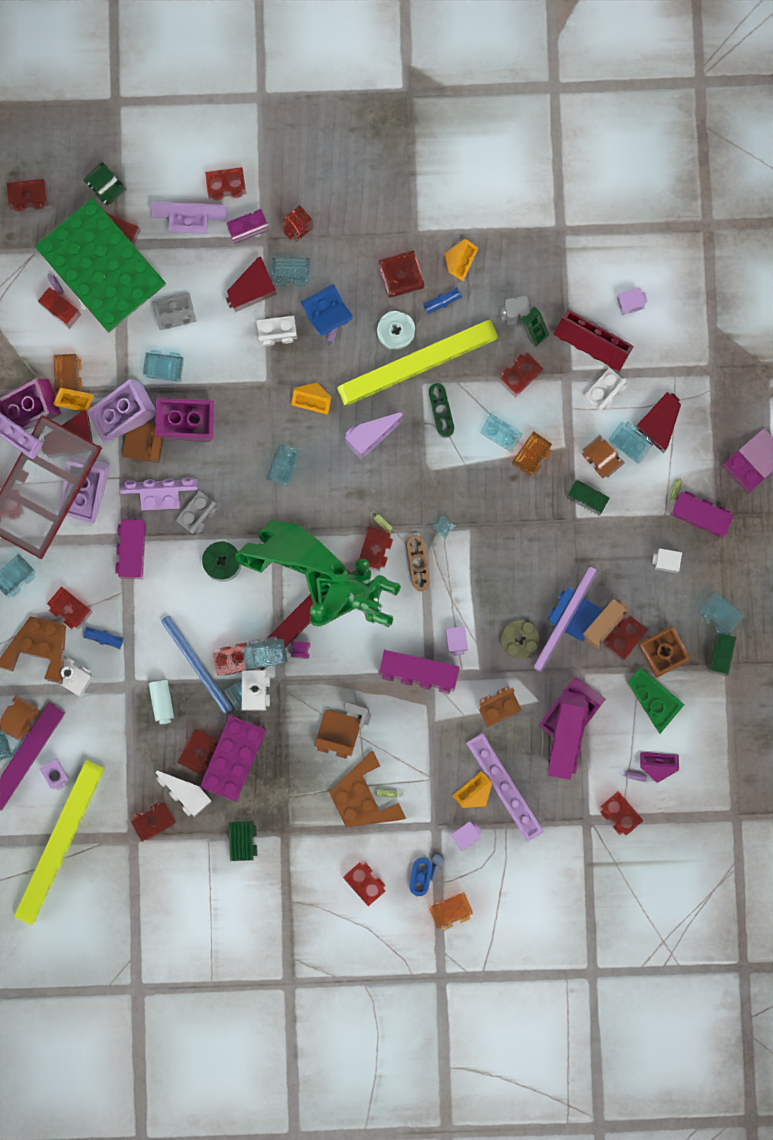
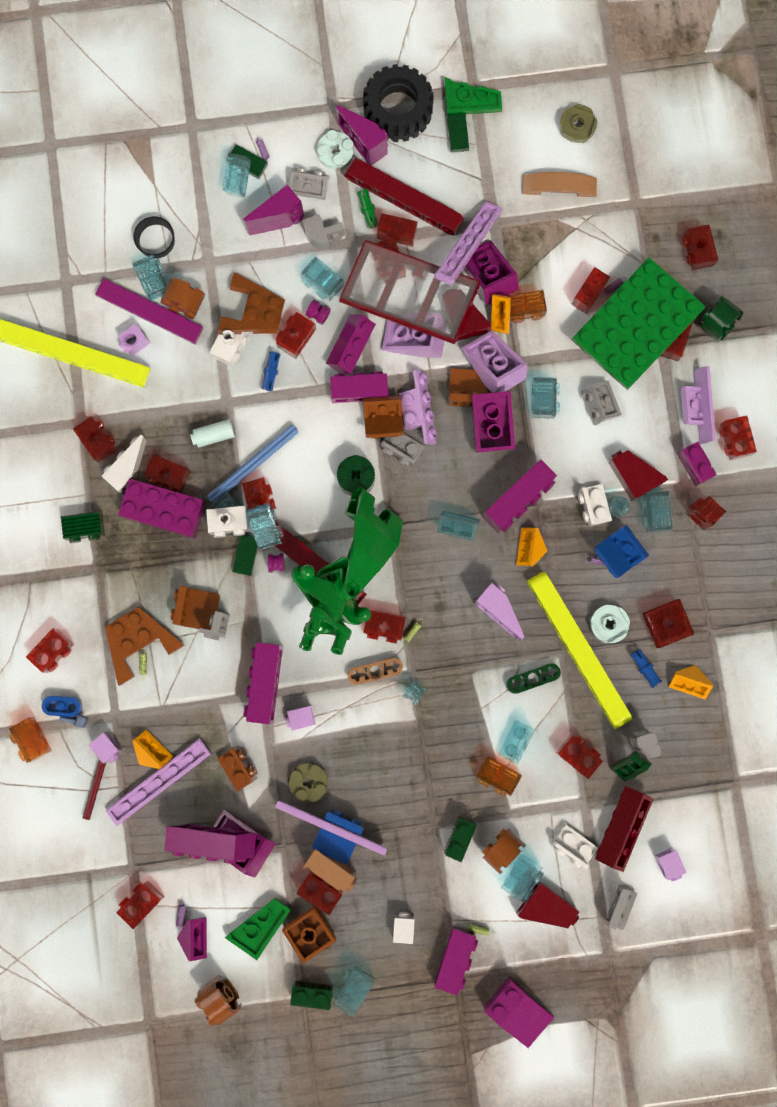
camera: 85 degrees right, 0 degrees up
(48, 583) = (318, 312): none -> magenta wheel
(85, 553) = (350, 343): none -> magenta brick
(165, 528) = (383, 417): none -> dark orange bracket
(261, 402) = (519, 496): none -> magenta brick
(281, 311) = (615, 508): none -> clear light blue wheel
(289, 680) = (245, 556): none -> dark green tile
(506, 851) = (94, 790): none -> dark red bar
(667, 352) = (620, 908): none -> light grey bracket
(718, 743) = (218, 1000): none -> dark orange brick

